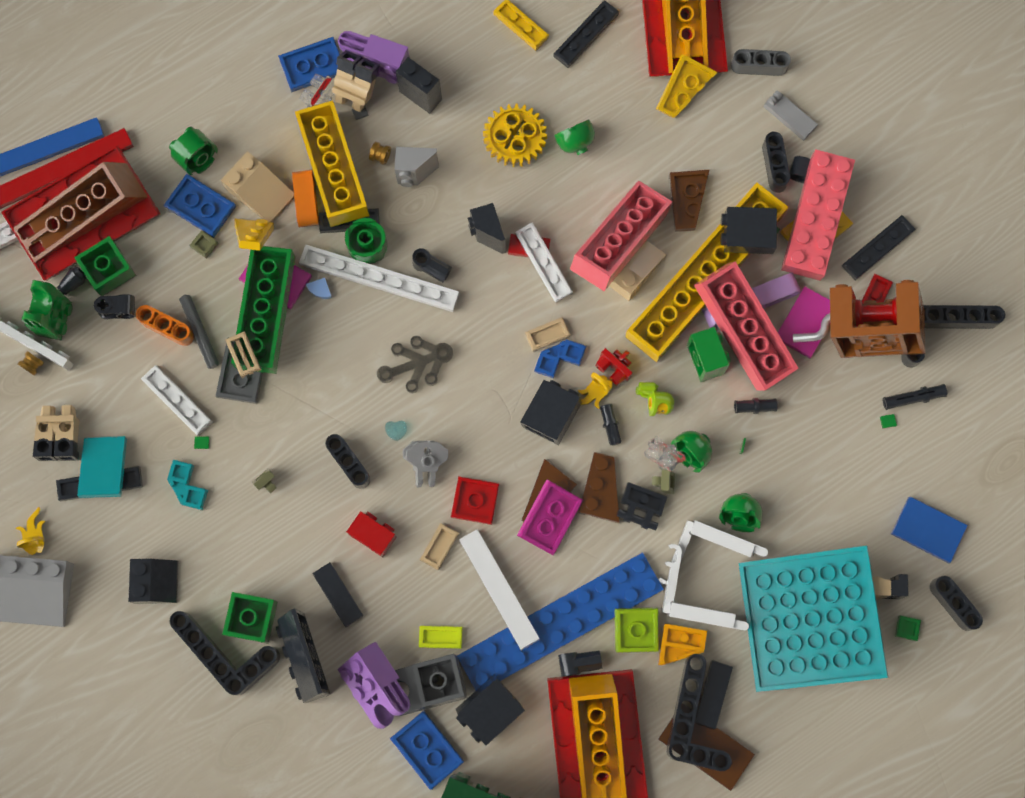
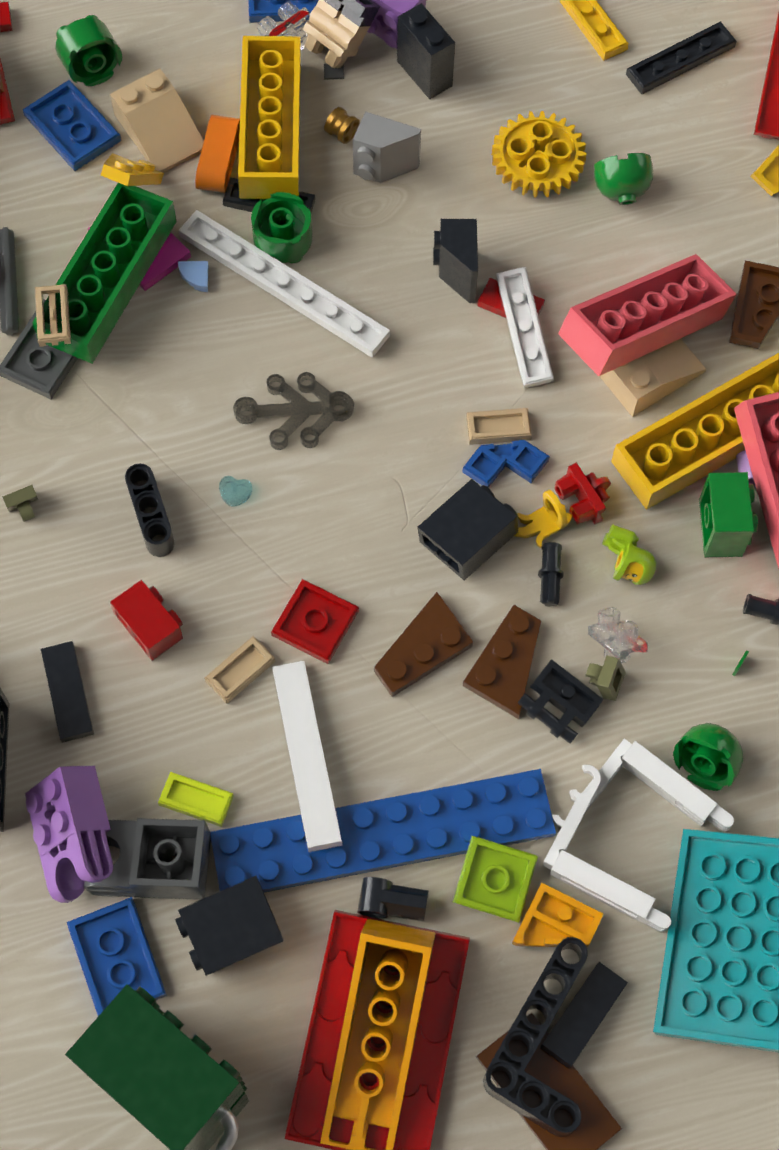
camera: 15 degrees right, 10 degrees down
(204, 244) = (58, 174): olive tile -> none
(427, 461) = (259, 541): light grey hinge -> none
(432, 267) = (362, 286): black piece -> none
(550, 517) = (417, 674): dark pink tile -> none
(695, 448) = (667, 641): green cylinder -> none

